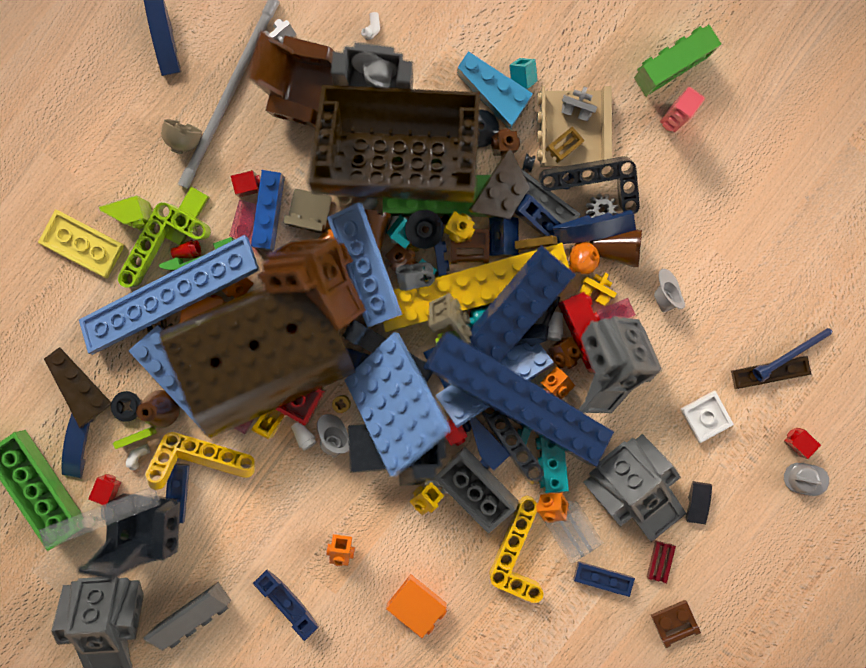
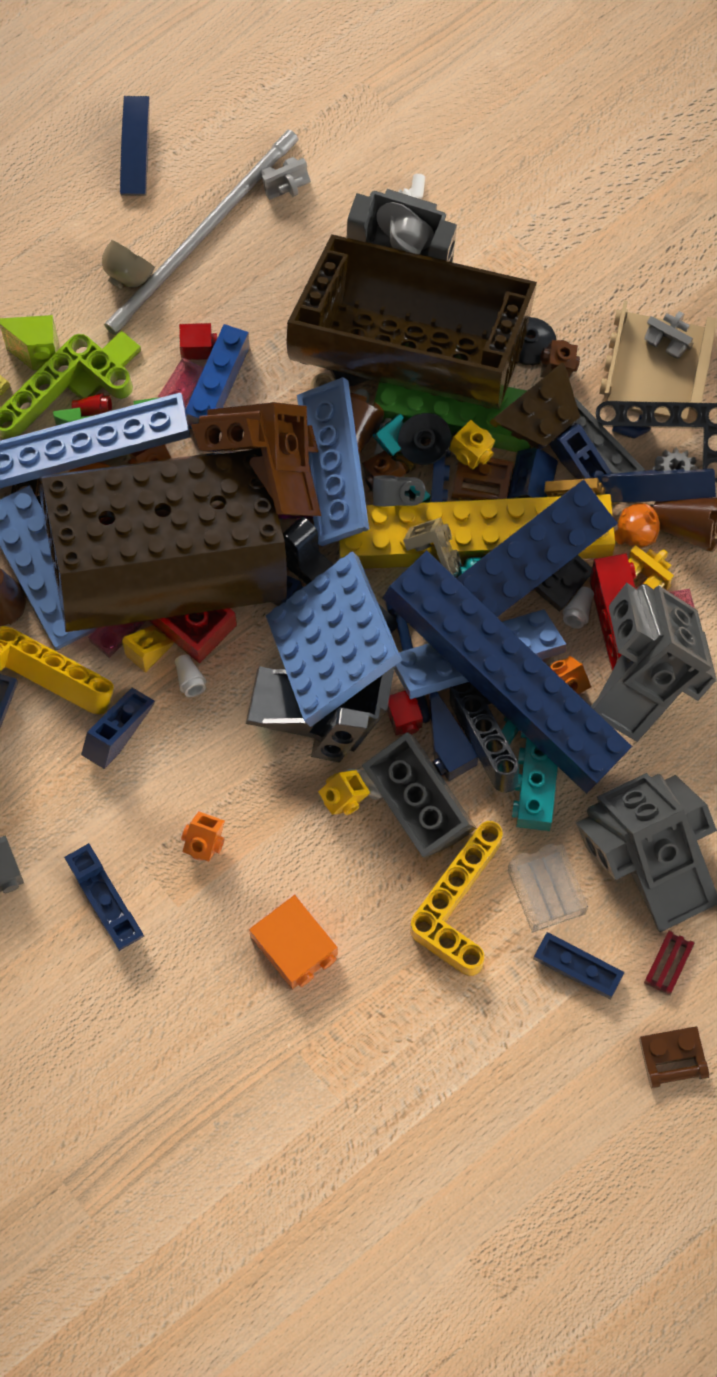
camera: 15 degrees right, 20 degrees down
(264, 483) = (116, 727): none -> dark blue slope
(291, 76) = (292, 219): reddish brown piece -> none
(308, 211) = (270, 385): dark tan bracket -> none
(333, 435) = (231, 683): light grey piece -> none
(336, 407) = (249, 638): pearl gold bush -> none
(496, 90) = (561, 295): dark azure wedge -> none
(524, 72) = (603, 283): teal panel -> none
(528, 162) = (586, 392): black bush -> none
(535, 335) = (542, 604): black slope -> none
(552, 507) = (523, 835): orange brick -> none
(555, 152) = (643, 382): pearl gold tile -> none
(565, 353) = (586, 640): reddish brown brick -> none

